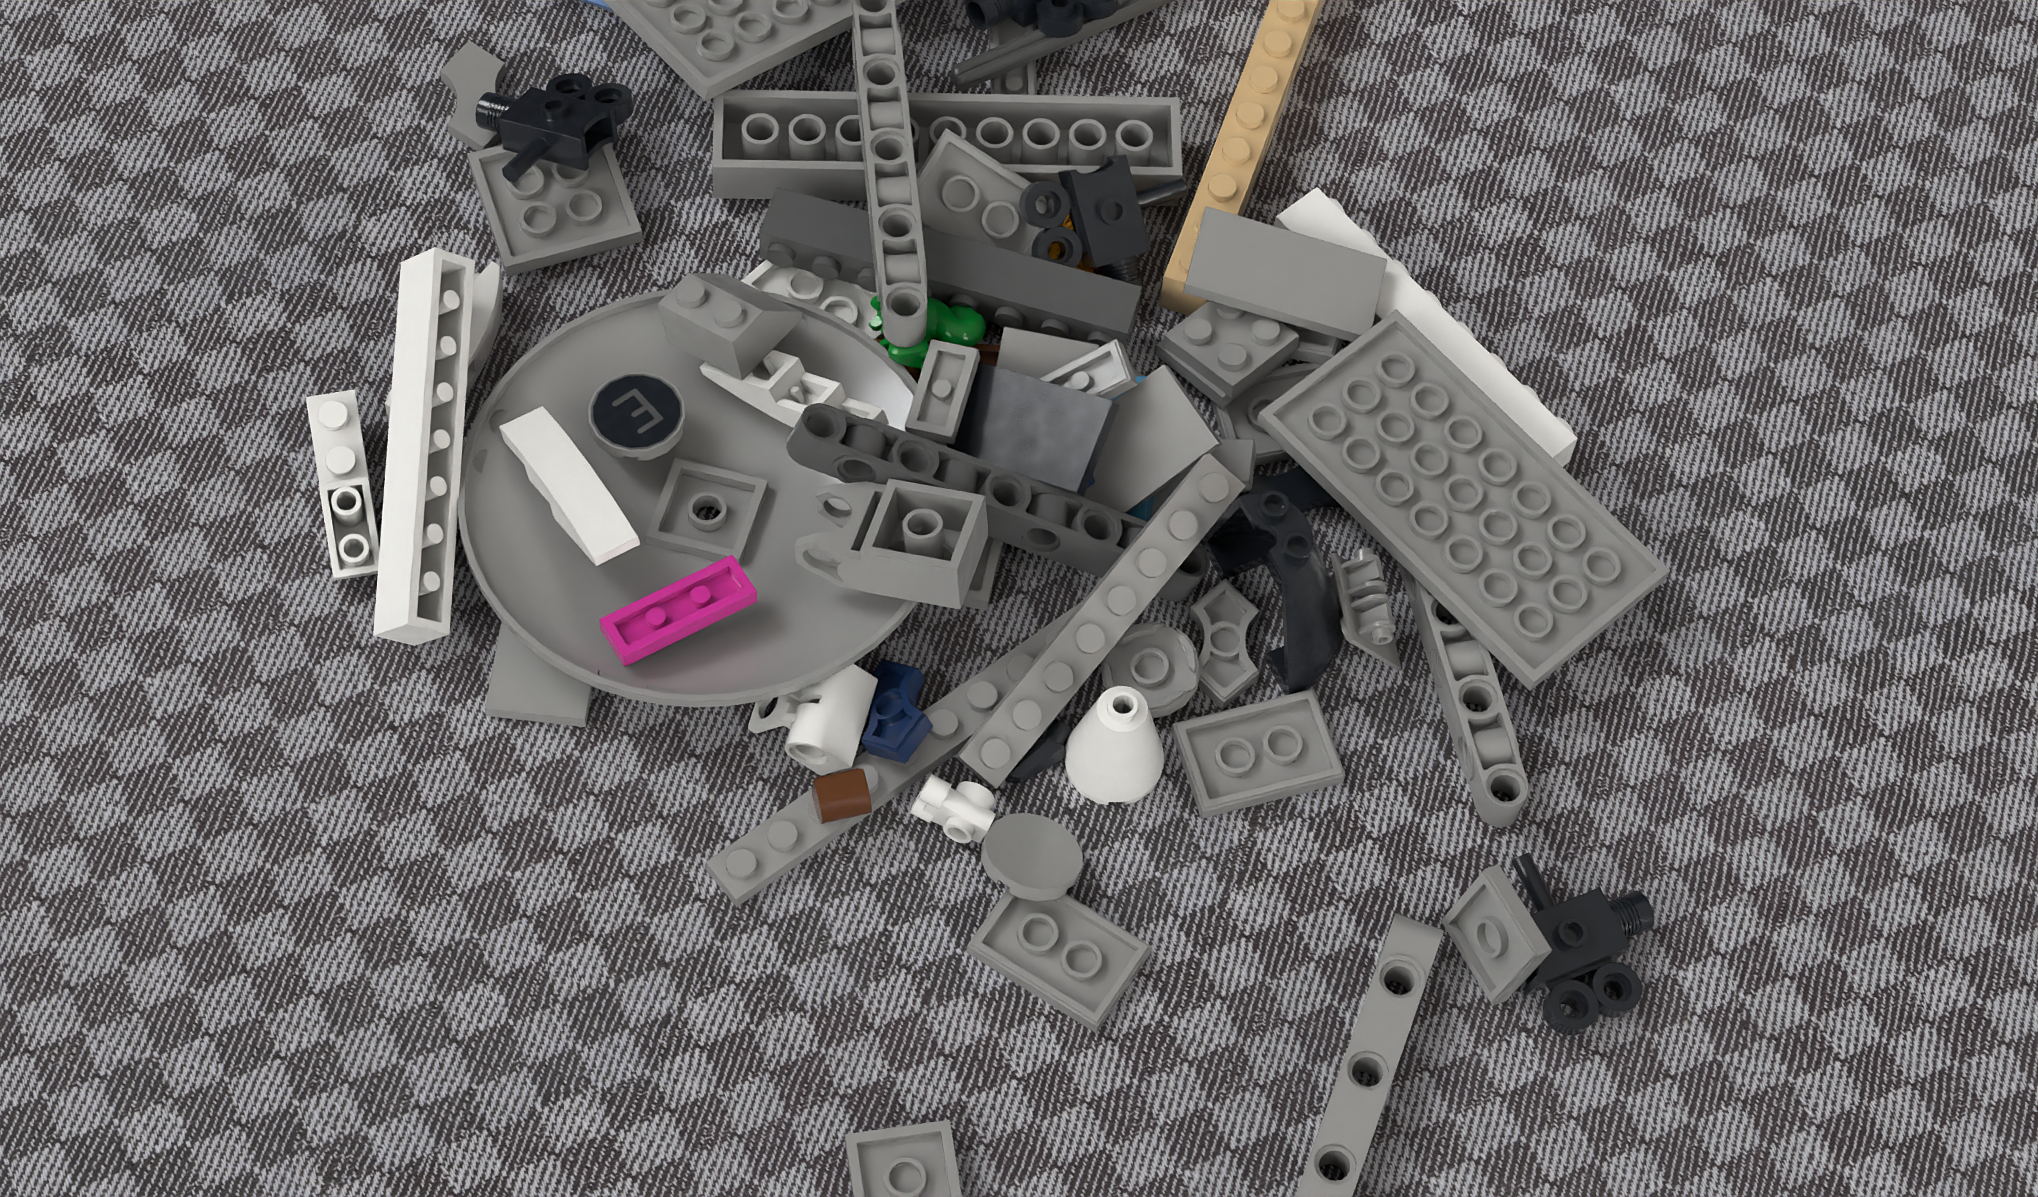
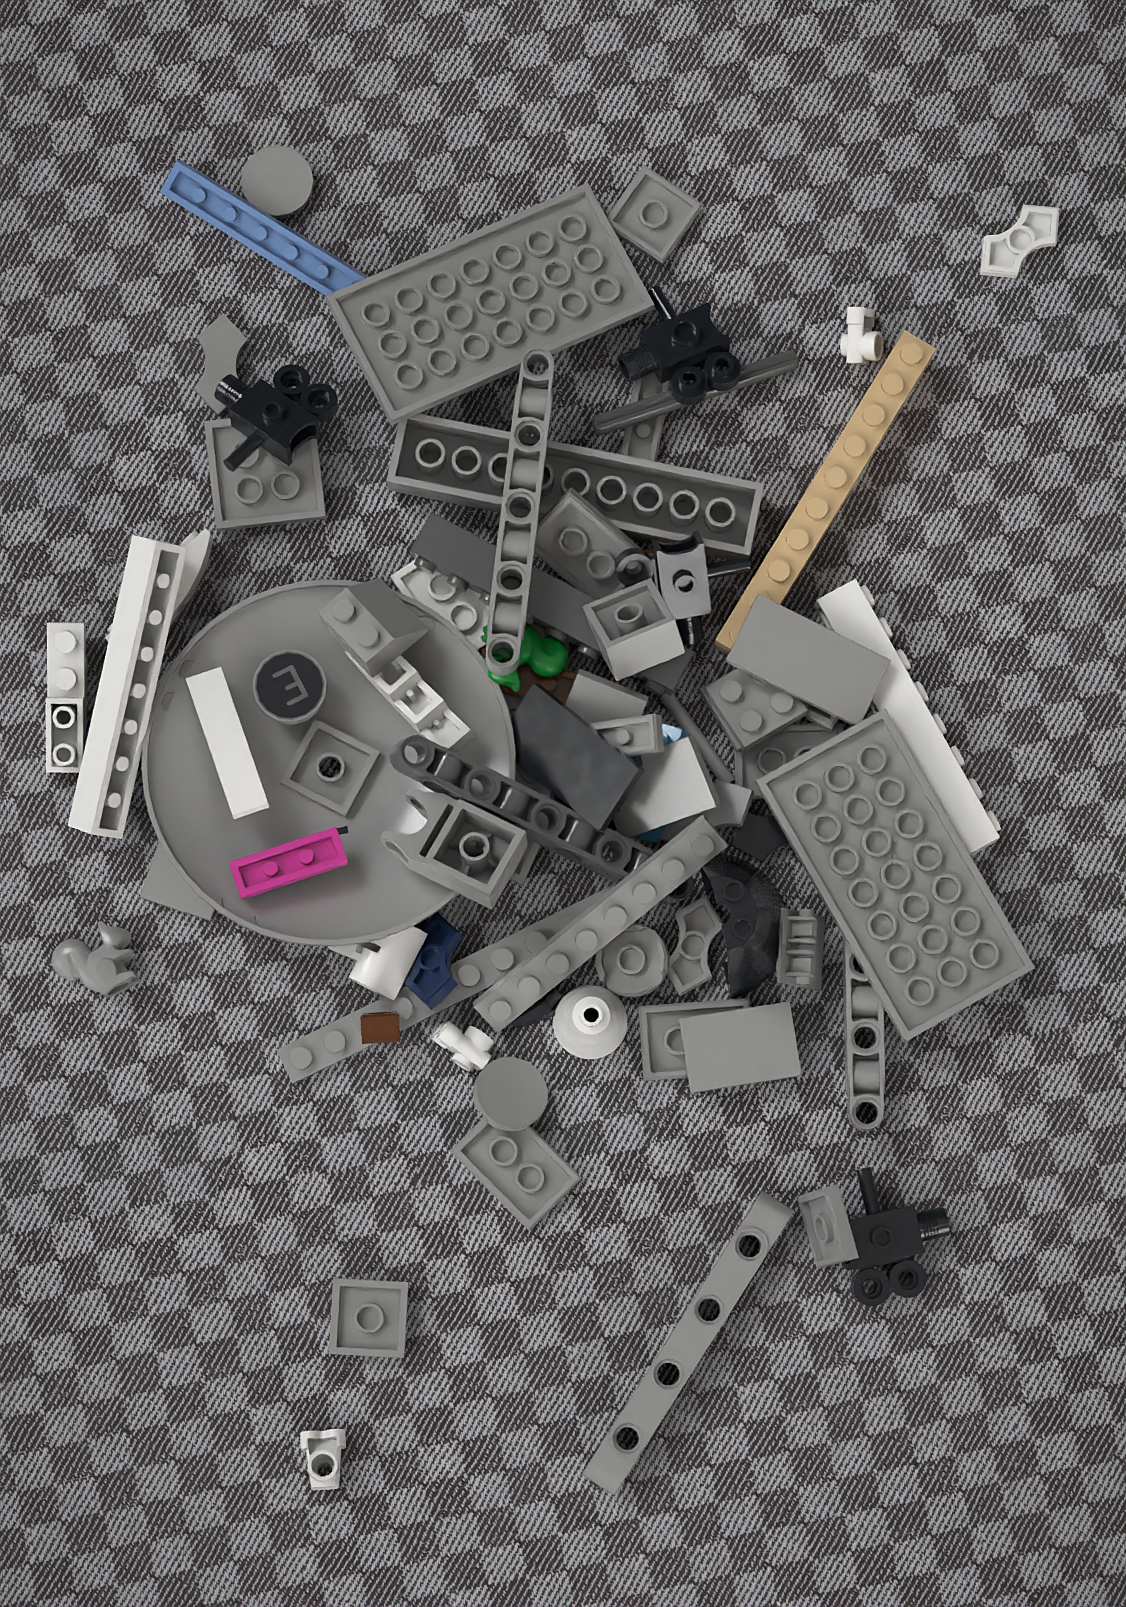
camera: 15 degrees right, 20 degrees up
(450, 803) = (98, 969): none -> light grey animal
(942, 391) = (519, 720): light grey plate -> none
(1065, 265) = (634, 629): none -> light grey slope
(1318, 744) = (740, 1047): none -> light grey tile

